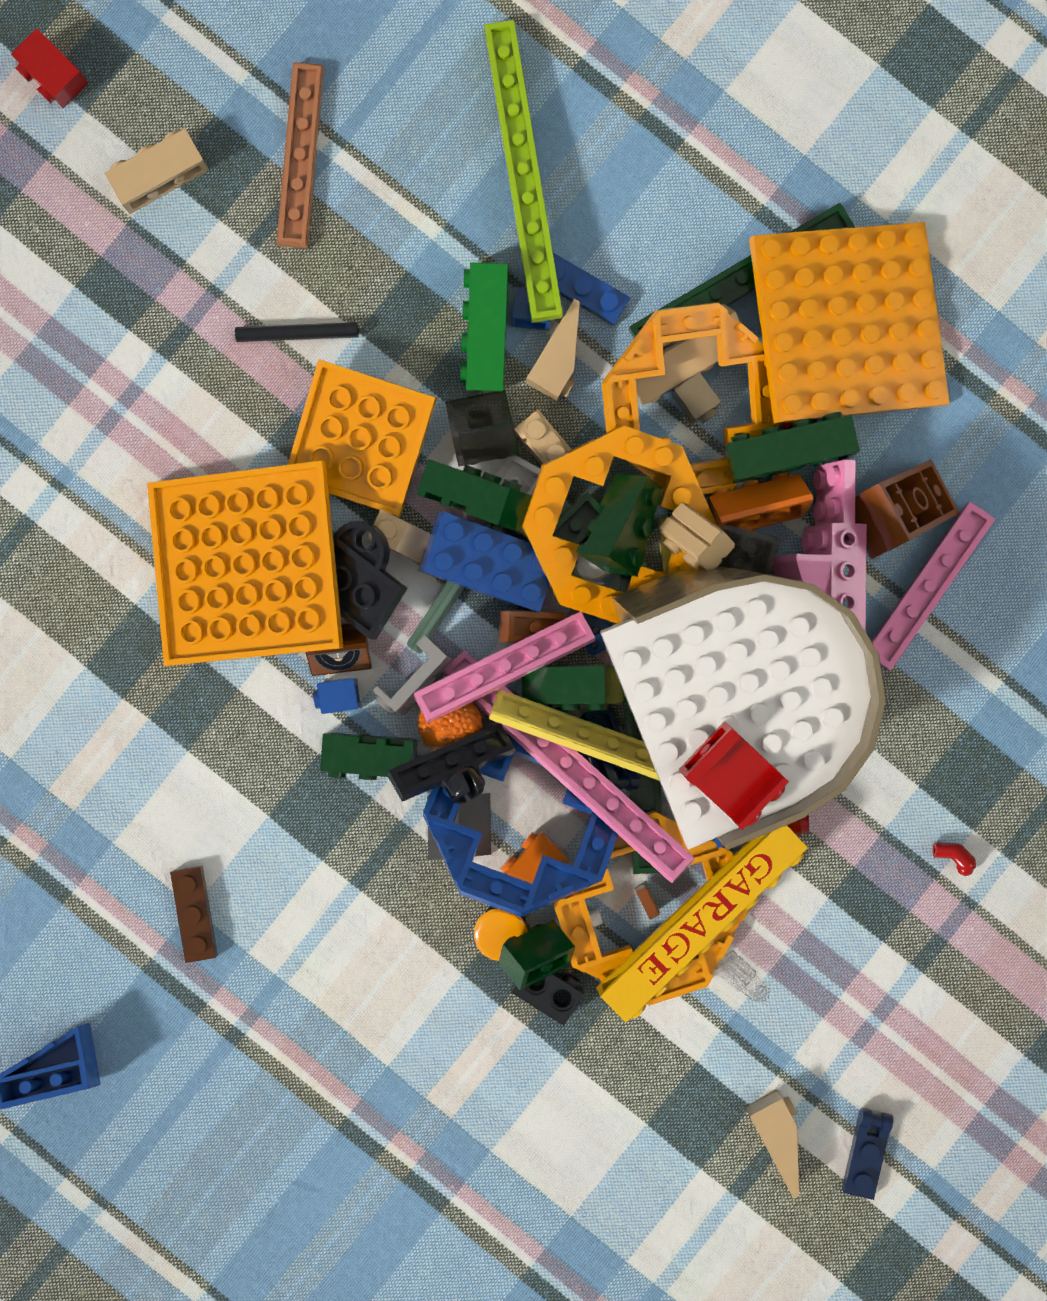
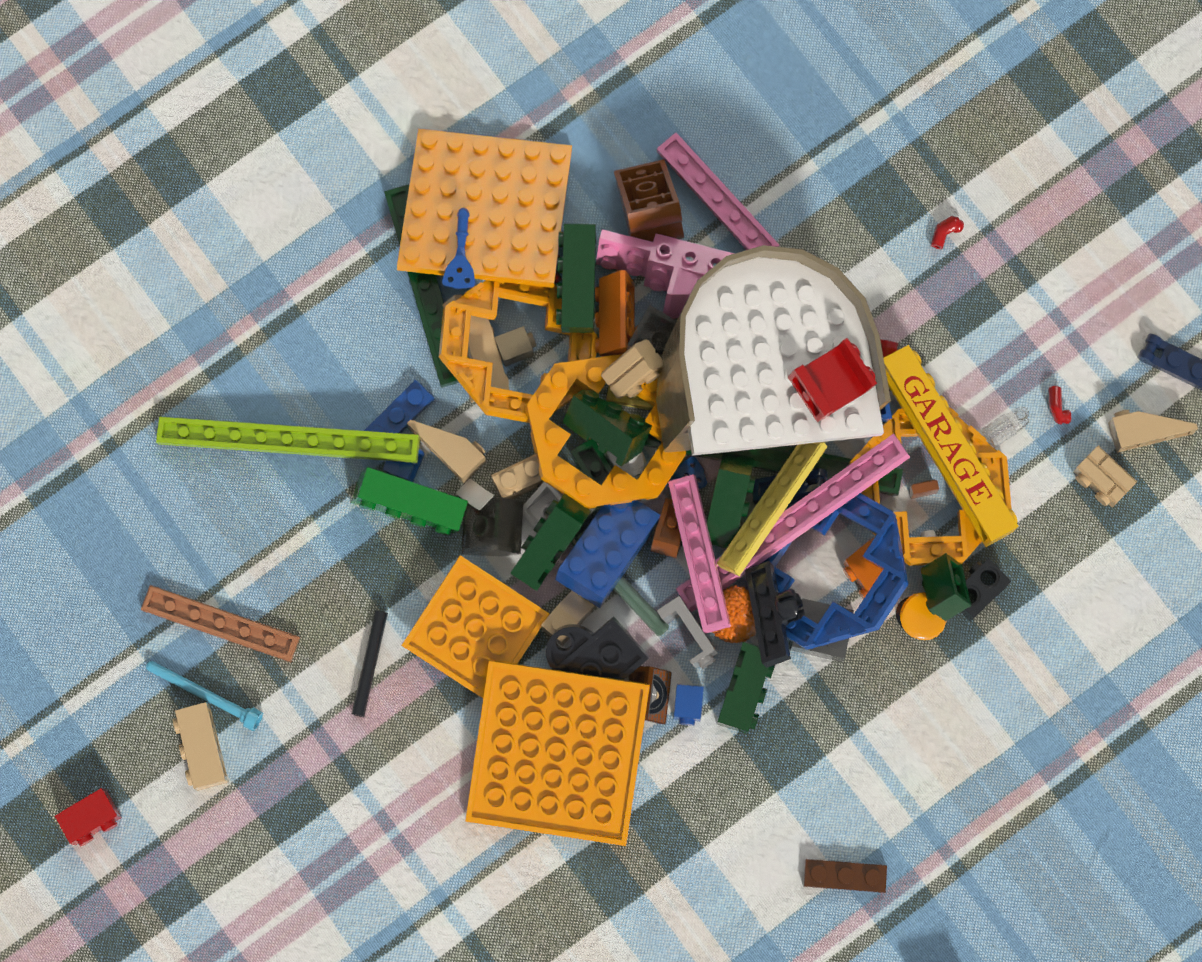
camera: 75 degrees left, 10 degrees down
(203, 215) = (250, 717): none -> medium azure piece
(514, 397) = (474, 494): none -> white sticker
(712, 1102) = (1104, 477): none -> tan brick
(779, 305) = (460, 259): none -> blue piece
(781, 1028) = (1055, 404): none -> red arm

